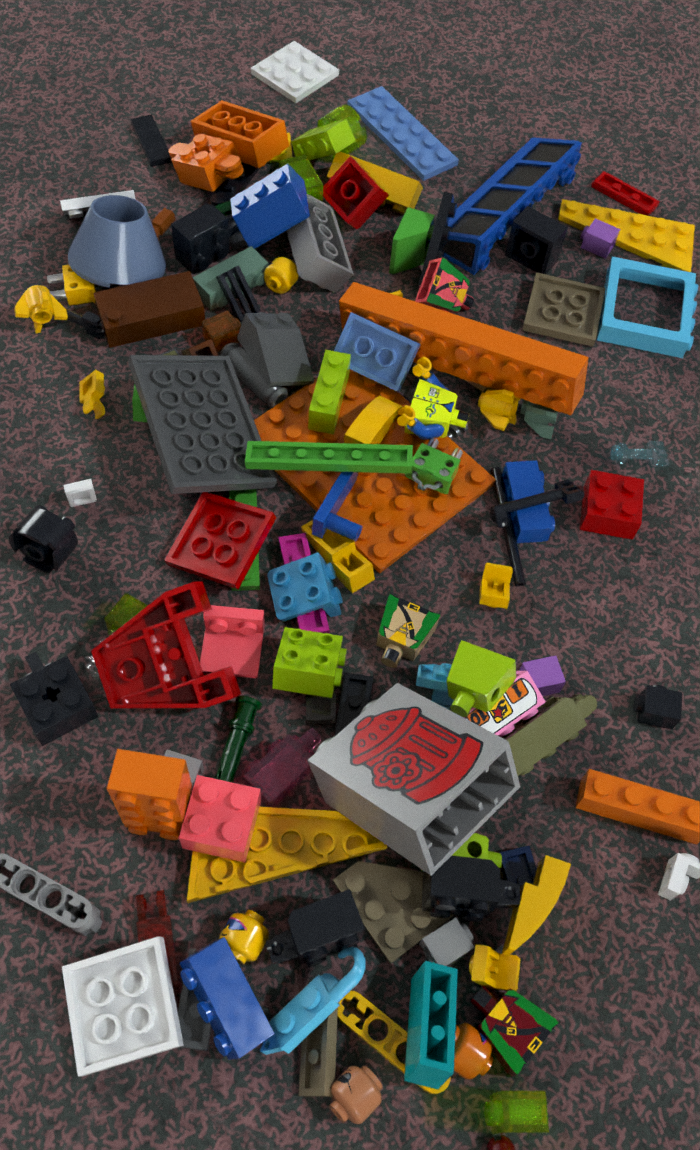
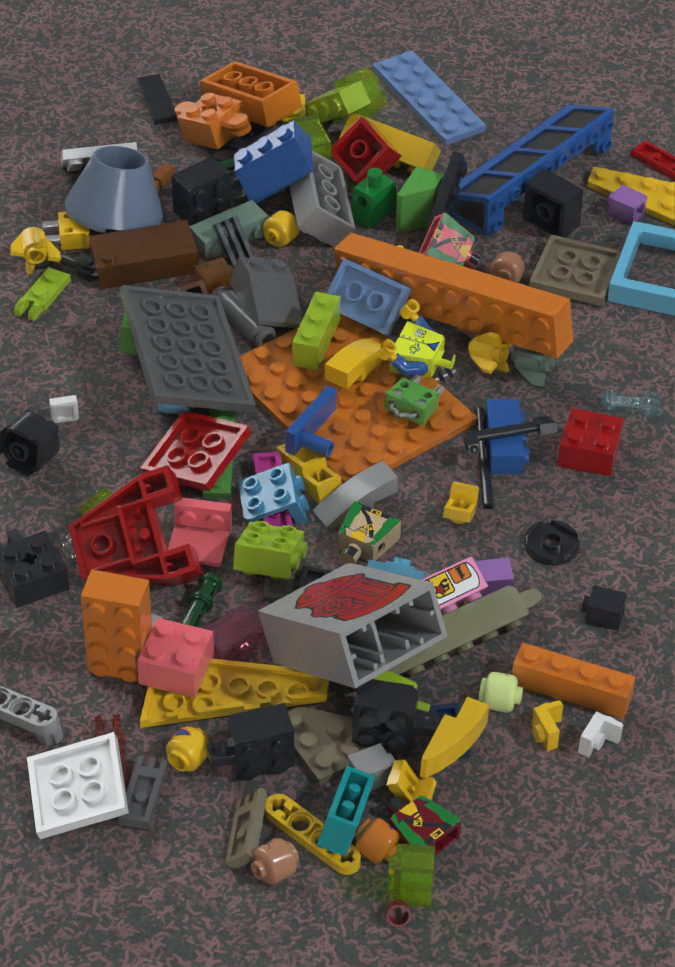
camera: 10 degrees right, 15 degrees down
(51, 355) = (42, 293): none -> lime hinge
(91, 391) = (79, 325): yellow plate -> none
(225, 999) = (168, 783): blue brick -> none
(294, 71) = (318, 34): white plate -> none
(312, 1006) = (242, 794): medium azure plate -> none
(329, 457) = (307, 381): bright green plate -> none
(367, 240) = (373, 198): none -> green torso
(391, 579) = (365, 488): none -> light grey slope
(478, 678) = (424, 554): lime torso -> none
(500, 311) = (507, 266): none -> nougat head
(569, 825) = (500, 691): none -> yellowish green head
(582, 637) = (551, 554): none -> black tile
(623, 872) = (544, 724): none -> yellow bracket

